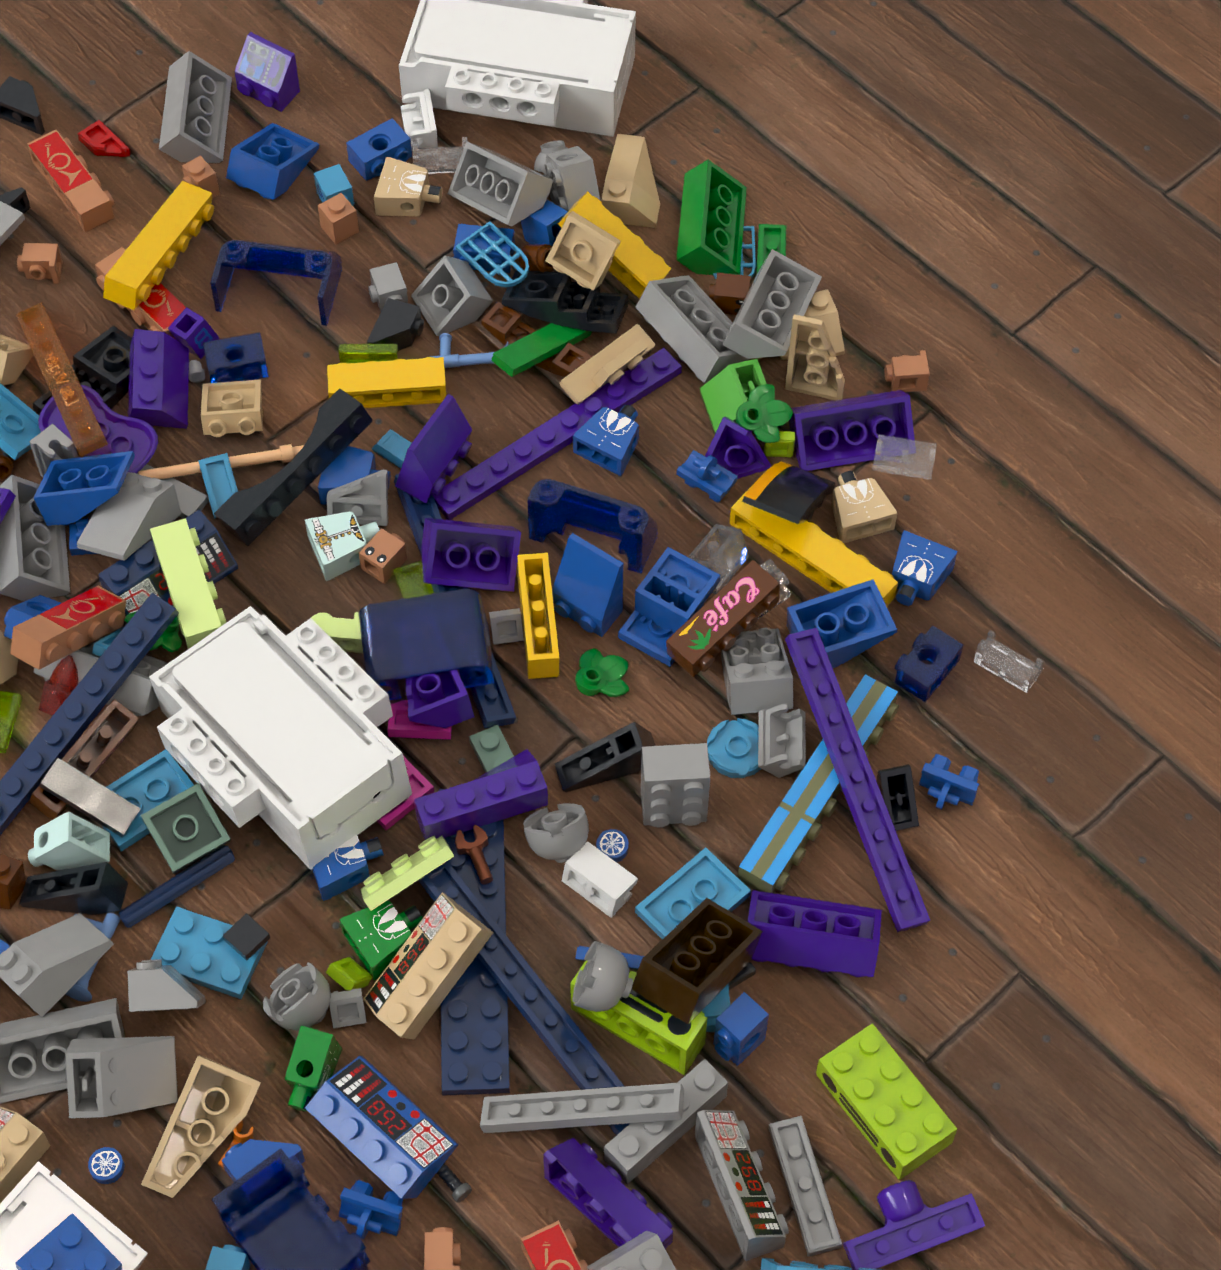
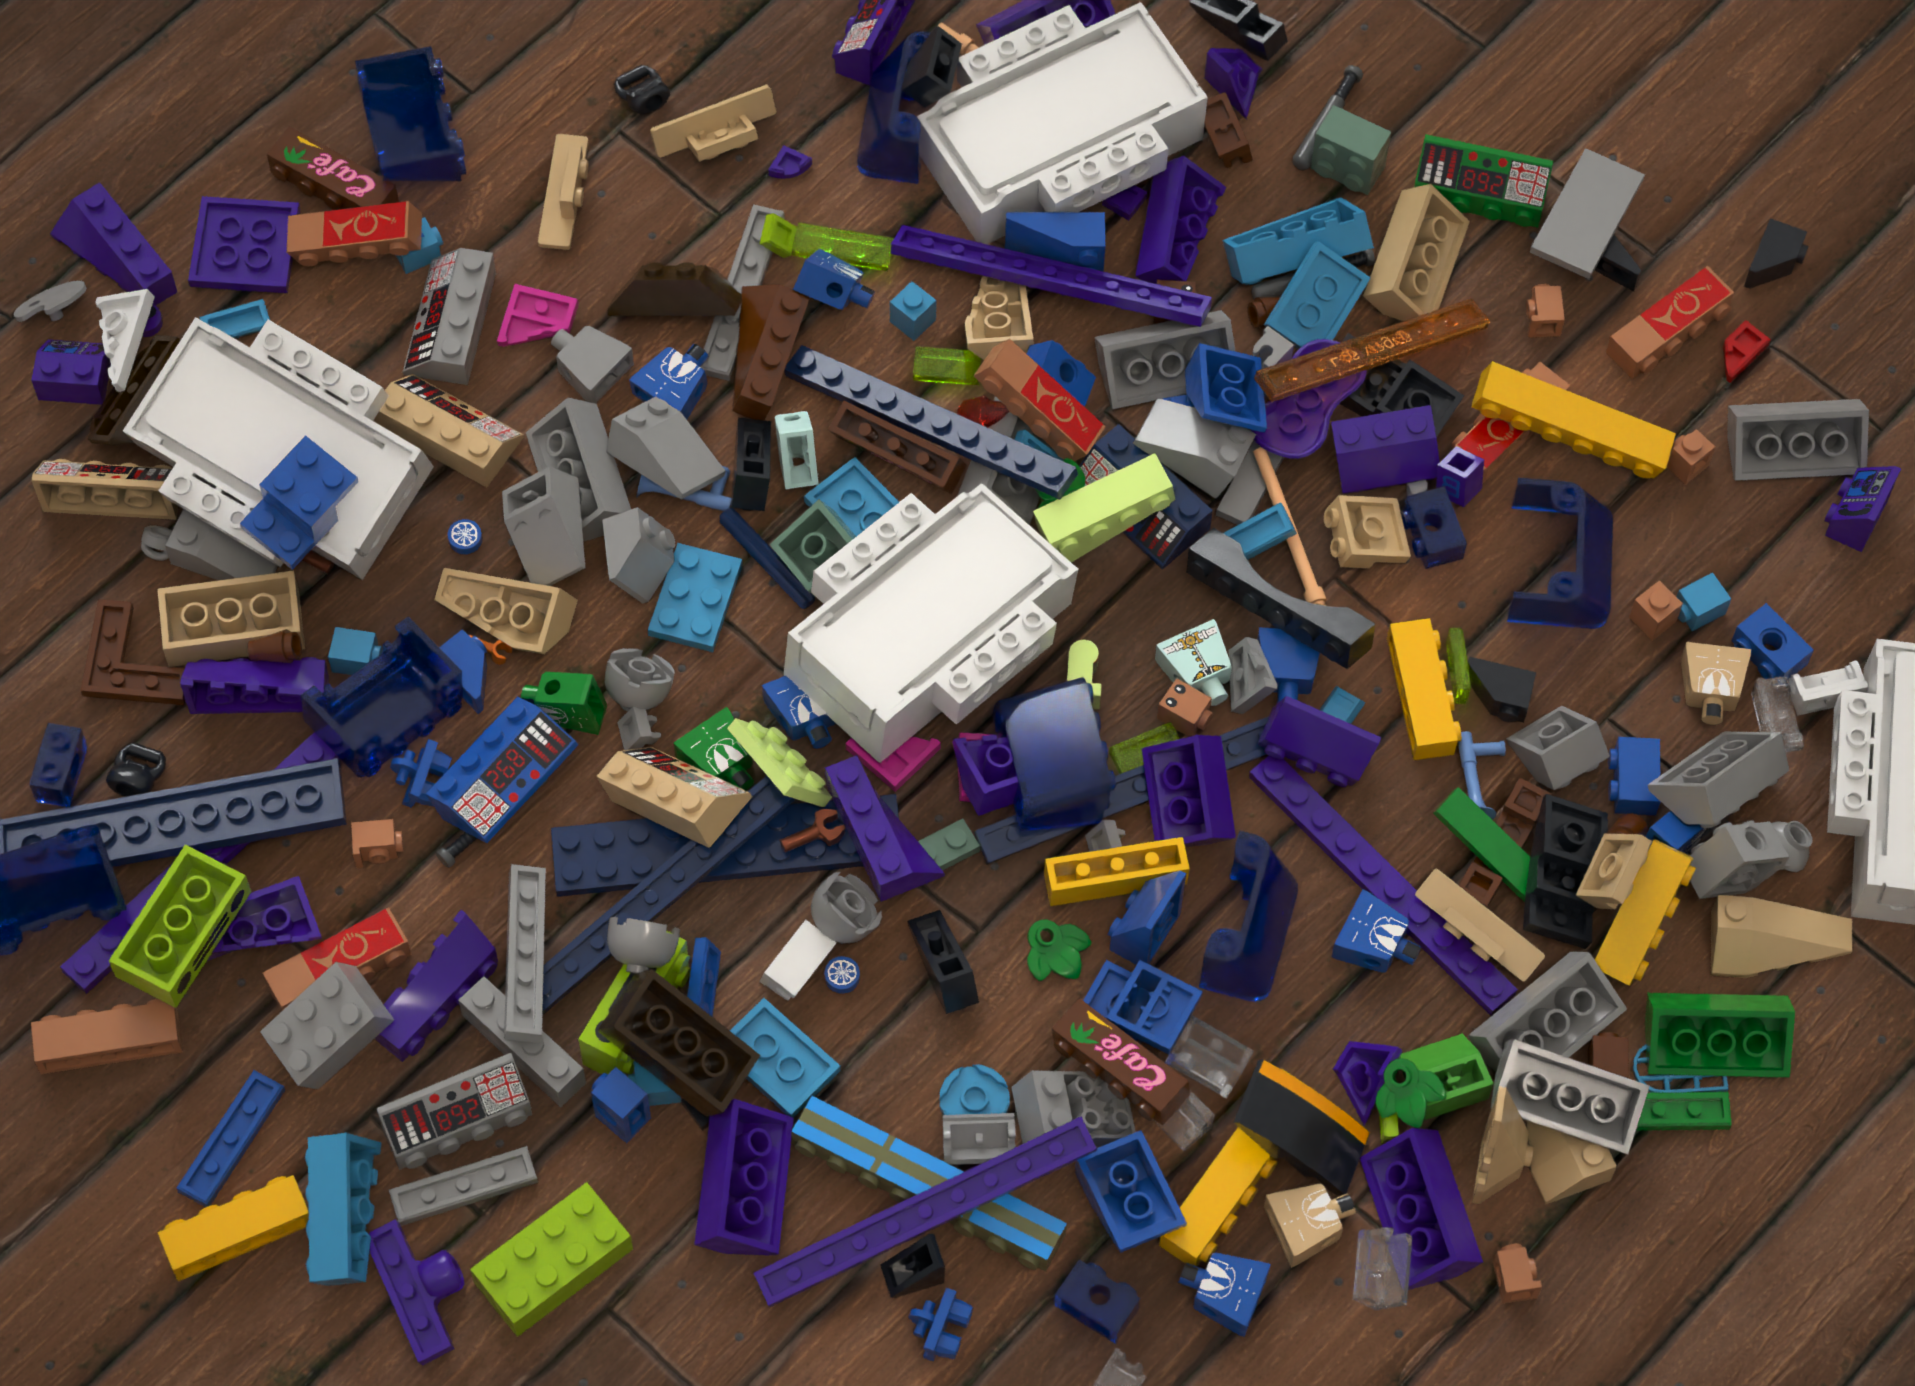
camera: 85 degrees right, 5 degrees up
(89, 797) = (846, 455): tile -> none
(246, 937) = (704, 623): black tile -> none
(270, 160) = (1737, 529): blue slope -> none
(349, 974) = (671, 726): lime tile -> none
(387, 283) = (1561, 676): light grey brick -> none
(494, 246) = (1611, 770): dark azure window -> none
(675, 784) = (896, 1018): light grey brick -> none
(707, 475) = (1329, 1043): blue hips -> none

